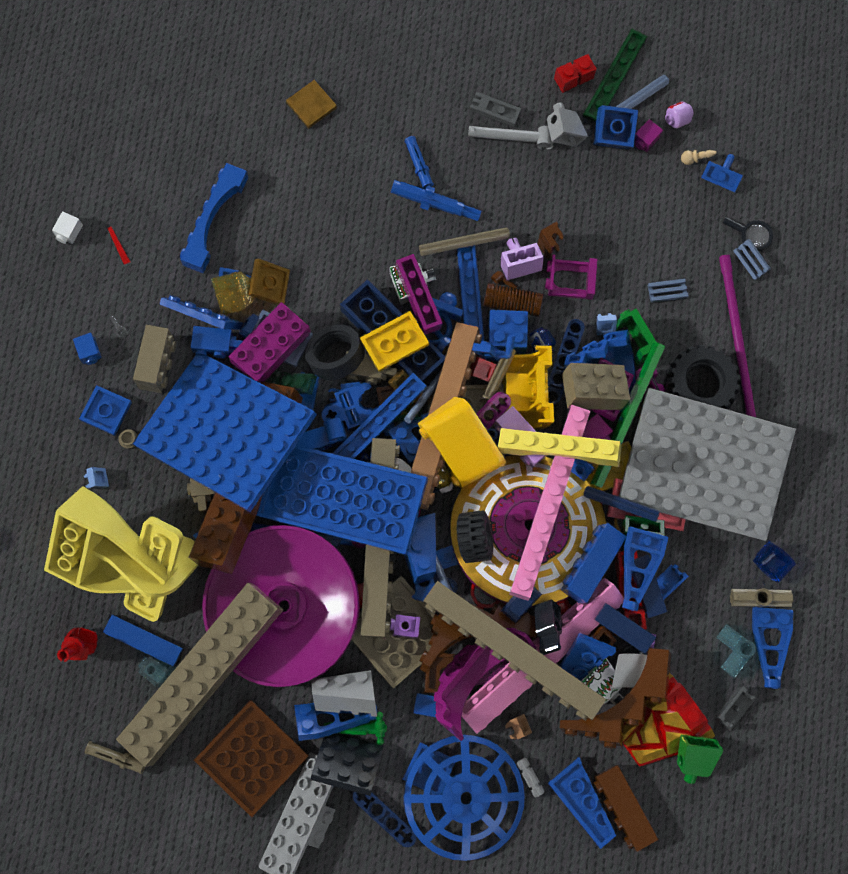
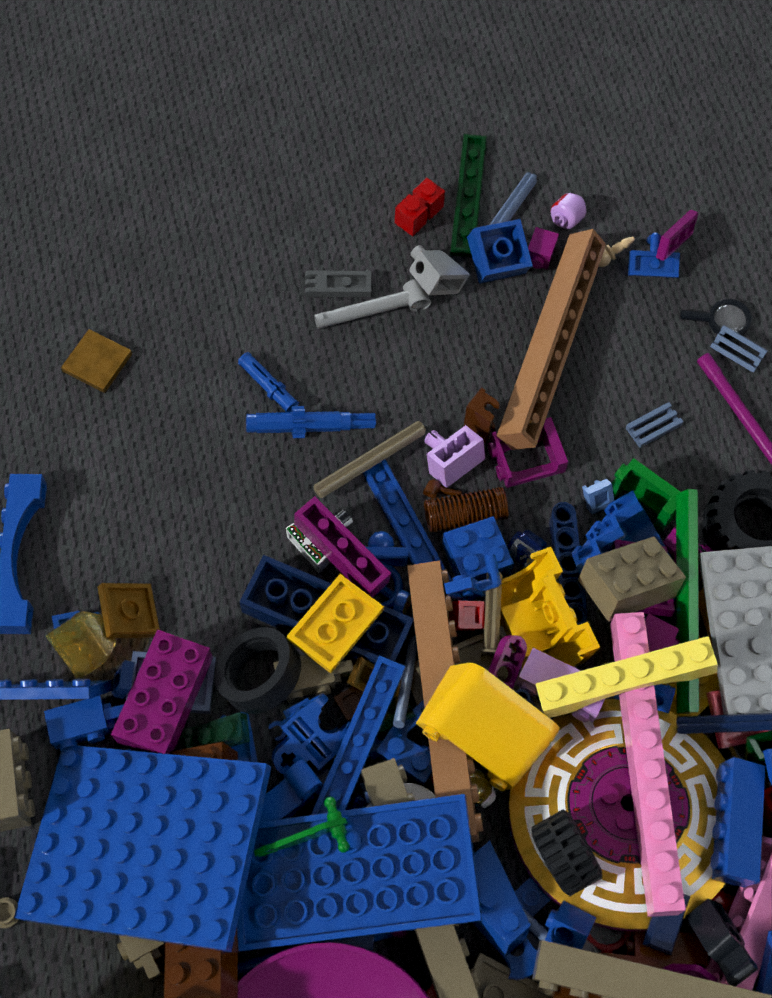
camera: 20 degrees left, 10 degrees down
(341, 464) = (335, 825): none -> green piece
(461, 581) = (569, 926): none -> blue brick
(624, 204) = (551, 341): none -> medium nougat brick
(746, 161) = (677, 235): none -> magenta tile

